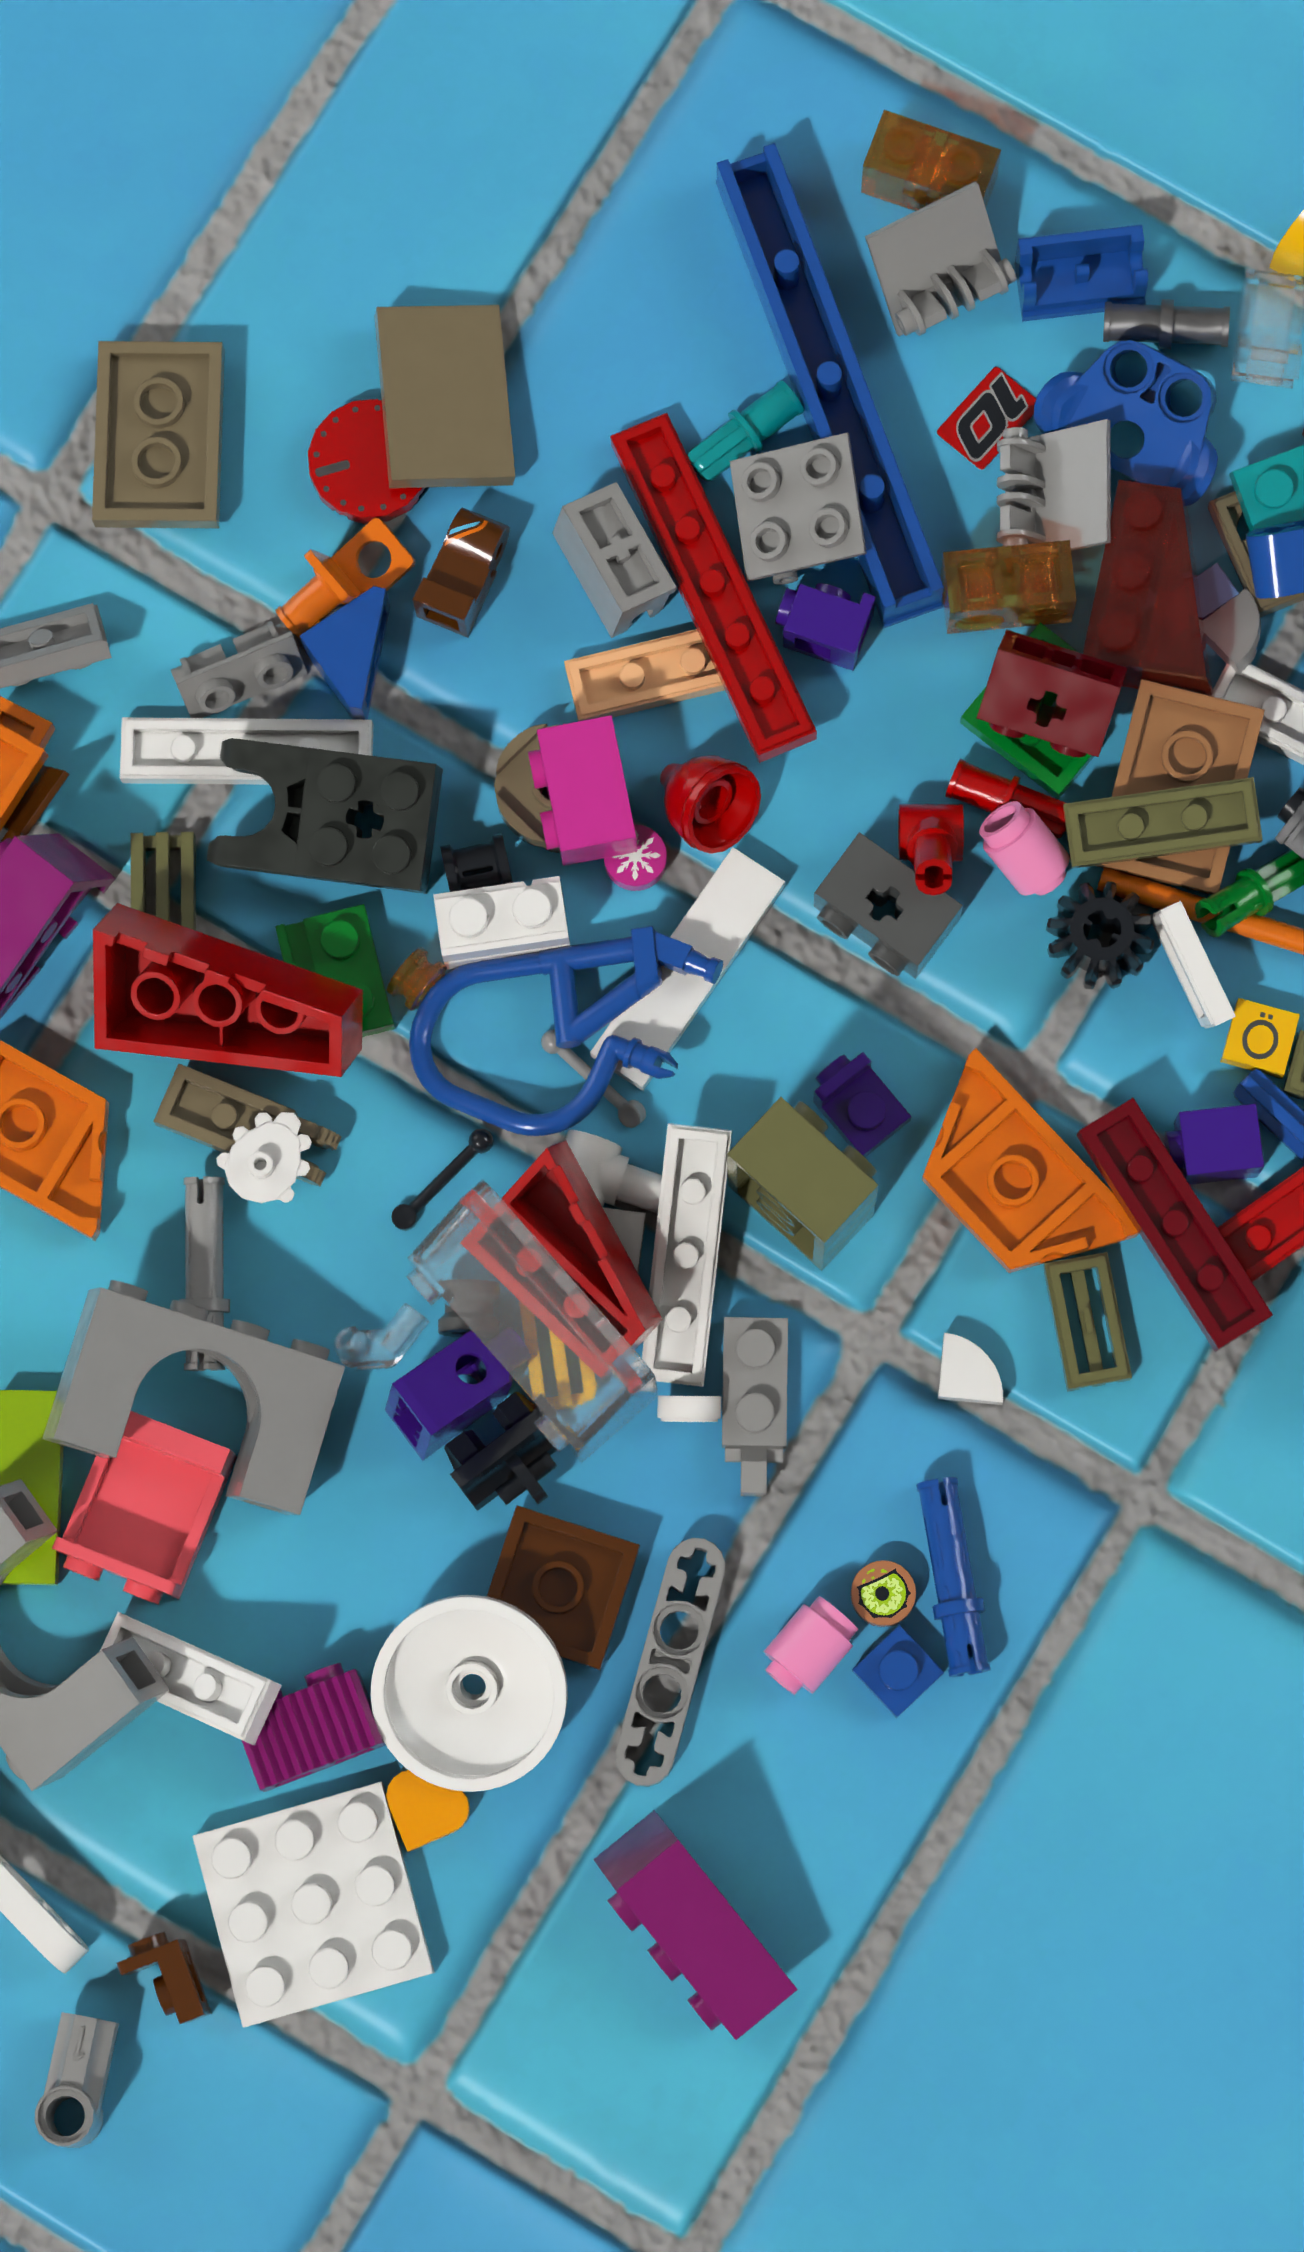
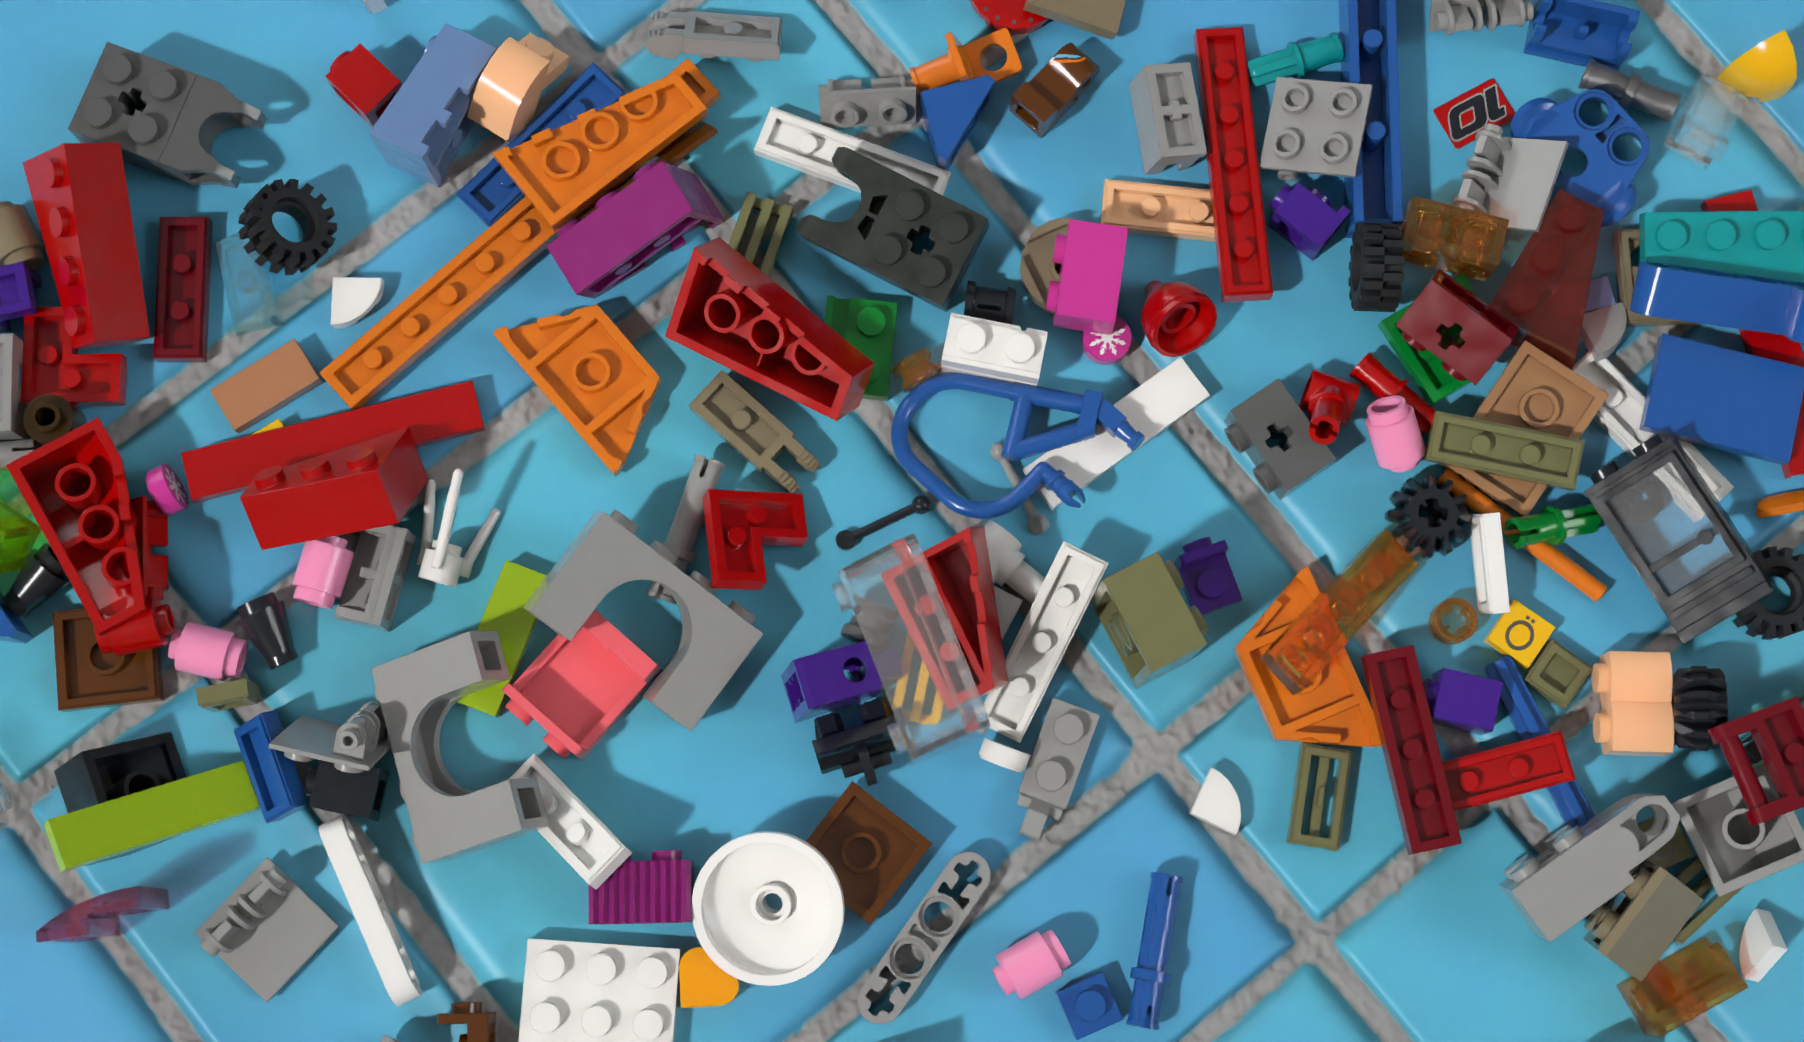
camera: 10 degrees right, 0 degrees up
(266, 1158) = (760, 461): white piece -> none
(270, 1250) = (739, 527): none -> red plate
(380, 1347) = (794, 629): clear arm -> none
(883, 1593) = (1098, 944): tile -> none
(930, 654) = (1376, 267): none -> black tyre
(1030, 1089) = (1338, 612): none -> clear orange plate
(1192, 1059) = (1465, 609): none -> clear orange bush

